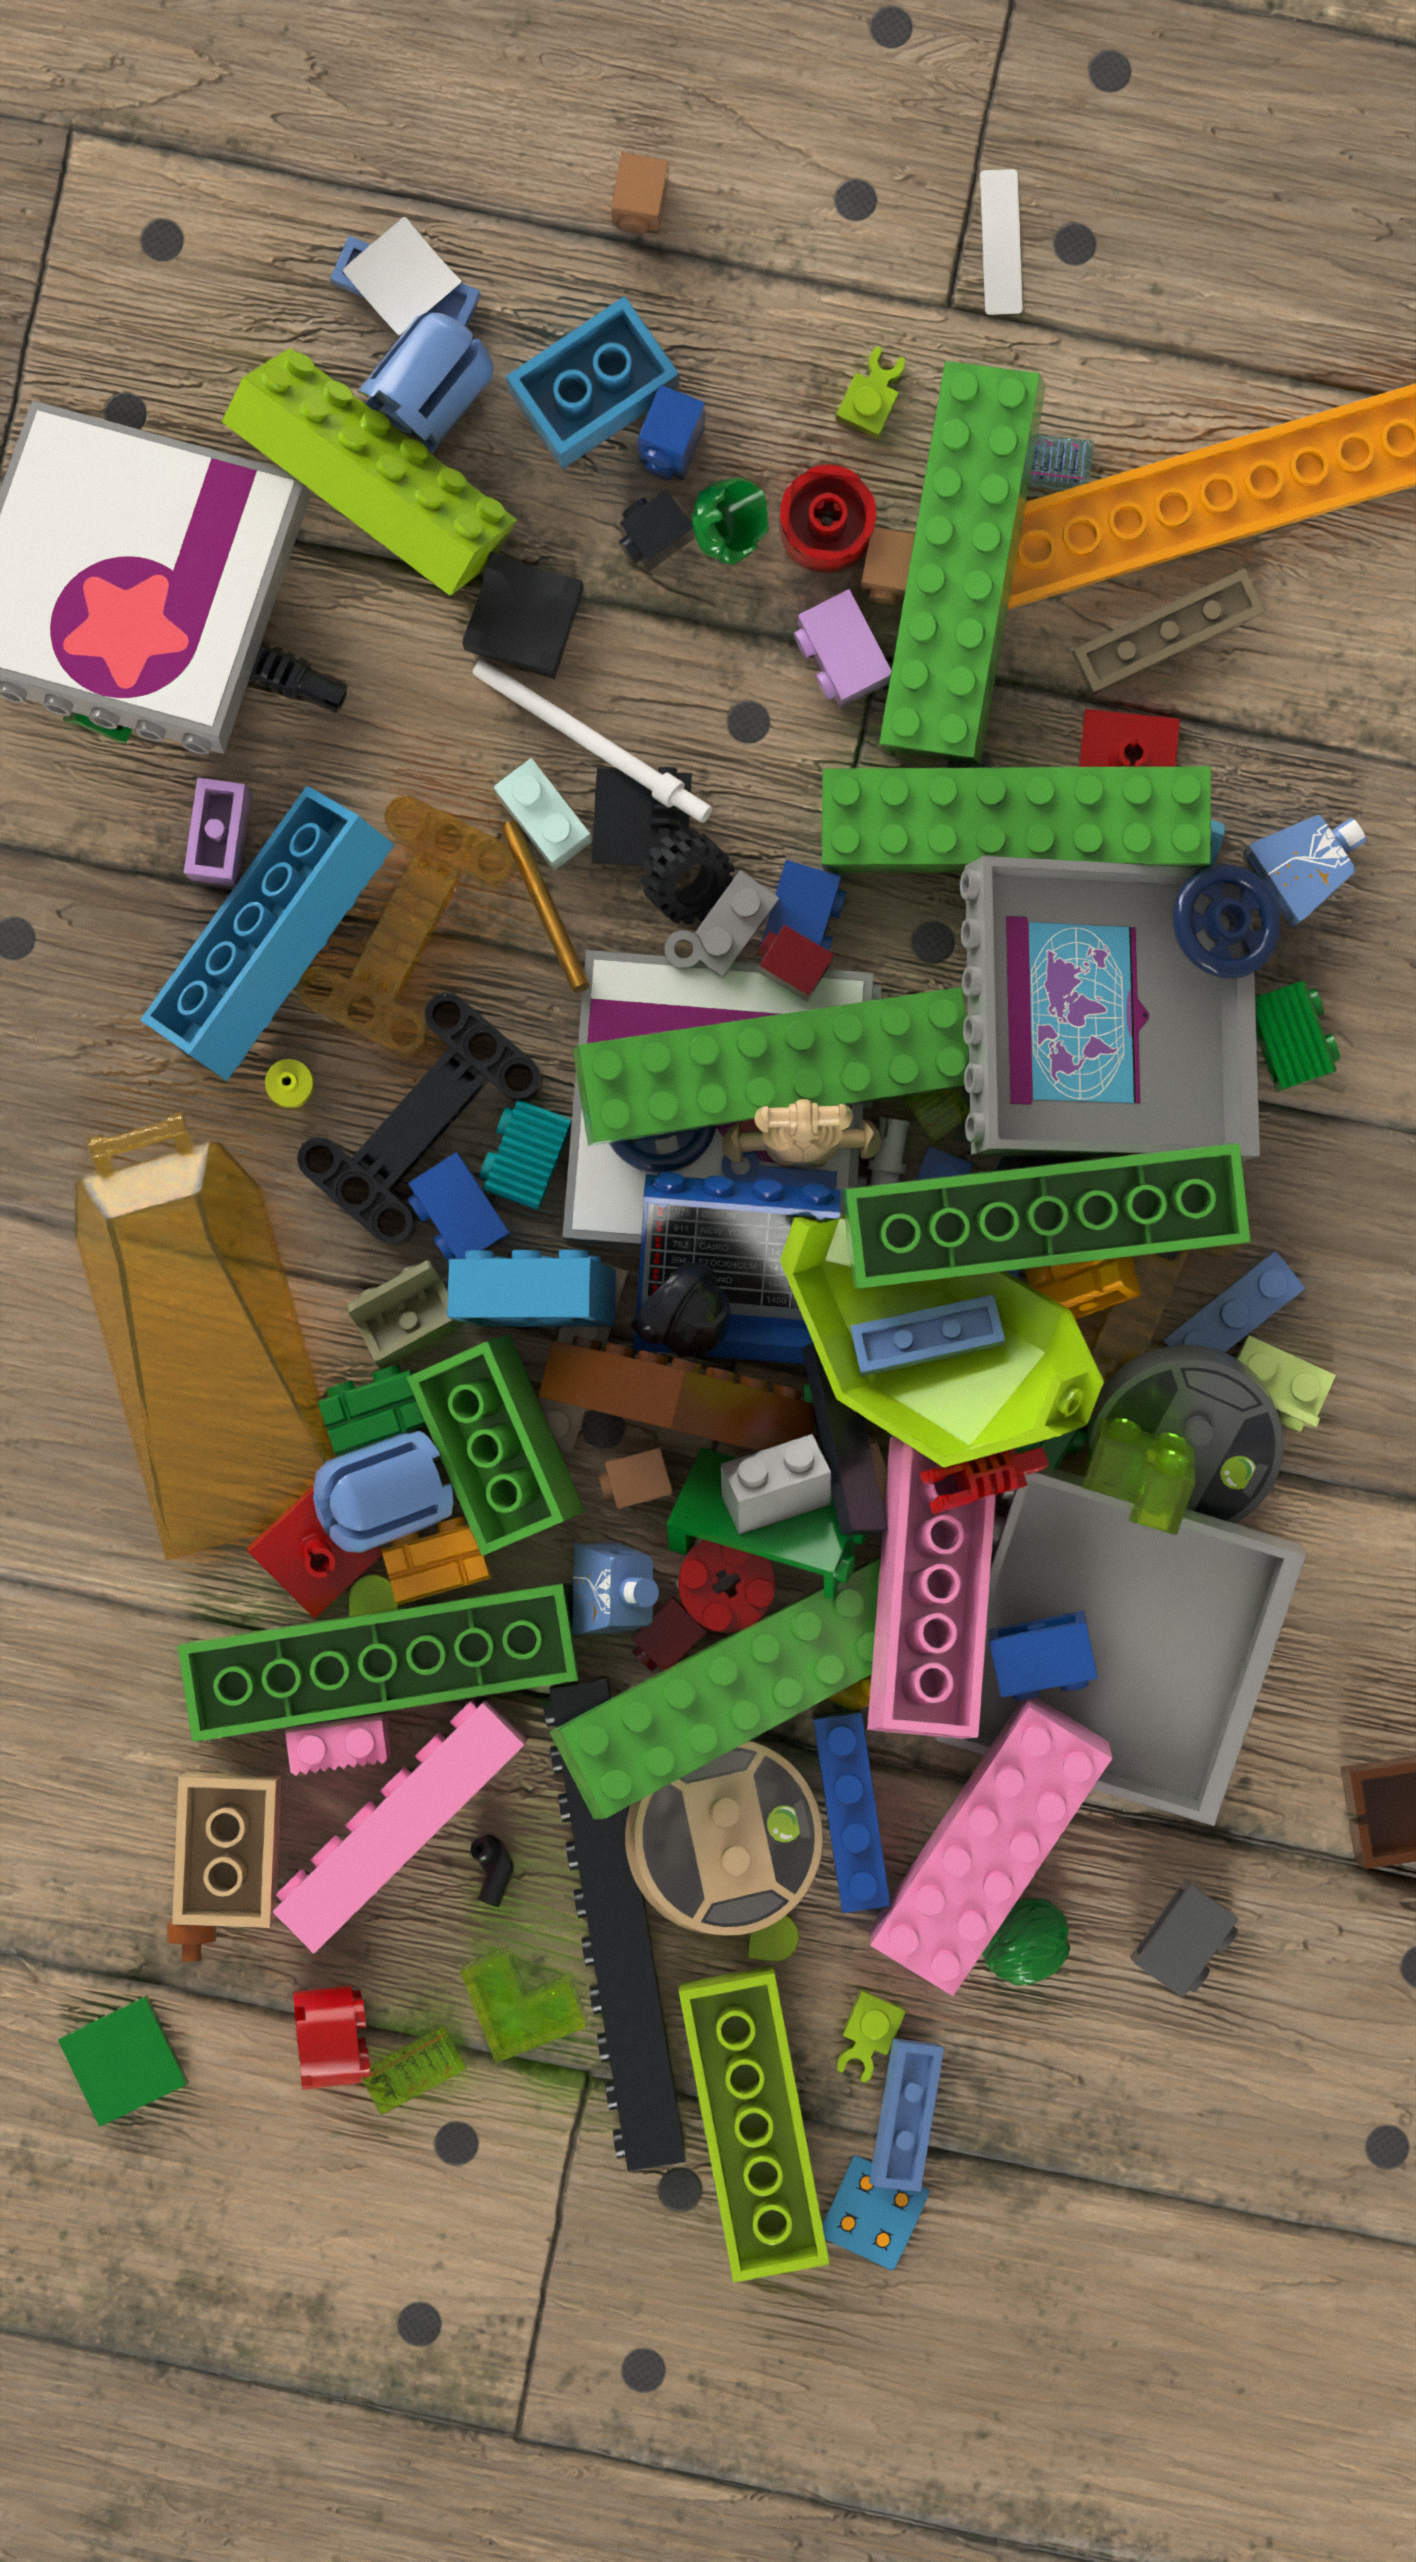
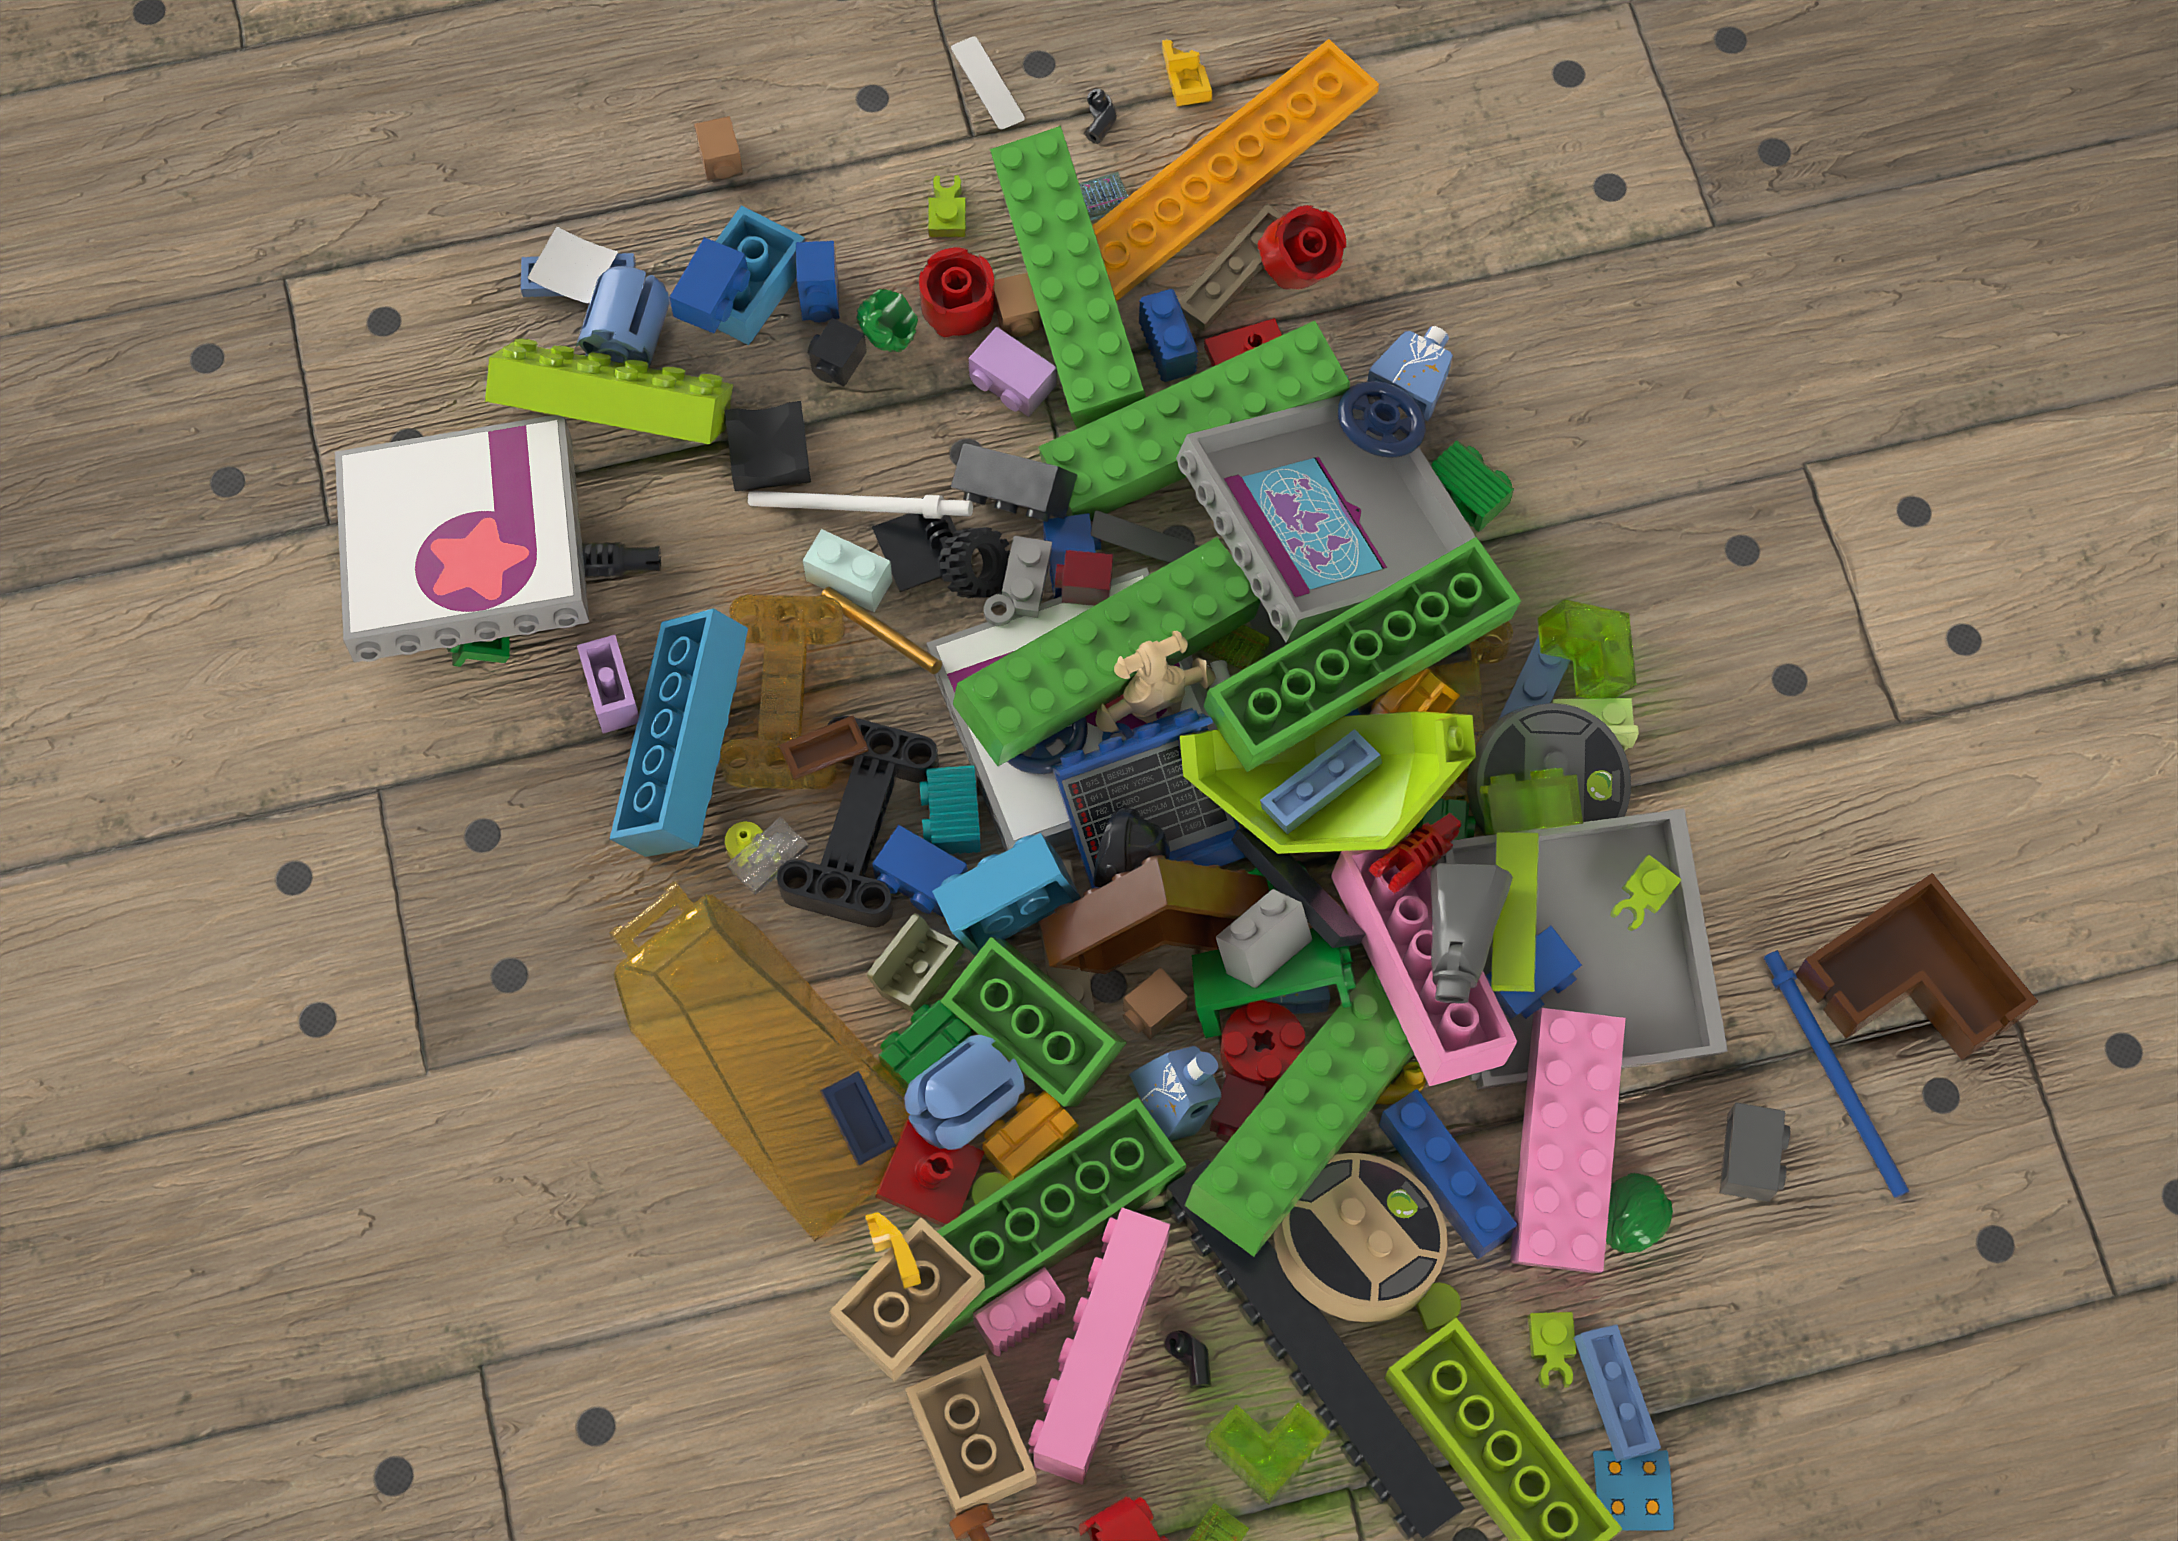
camera: 25 degrees left, 20 degrees down
(215, 1698) = (898, 1322): none -> tan brick
(216, 1633) = (886, 1236): none -> yellow slope
(264, 1461) = (858, 1118): none -> dark blue tile
(302, 1116) = (765, 854): none -> clear hips
(413, 1027) = (823, 747): none -> reddish brown tile
(537, 395) = (710, 285): none -> blue brick
(773, 800) = (1013, 482): none -> brick
(892, 934) = (1139, 538): none -> dark grey sticker
(990, 1581) = (1464, 916): none -> dark grey piece
(1044, 686) = (1168, 335): none -> blue brick
(1055, 1589) = (1516, 928): none -> lime tile
(1115, 354) = (1102, 113): none -> black arm
(1220, 1620) = (1648, 888): none -> lime plate
(1230, 642) = (1302, 247): none -> red brick
(1239, 345) = (1186, 75): none -> yellow slope
(1325, 1770) = (1785, 981): none -> blue bar
(1328, 1303) = (1596, 642): none -> clear neon green brick

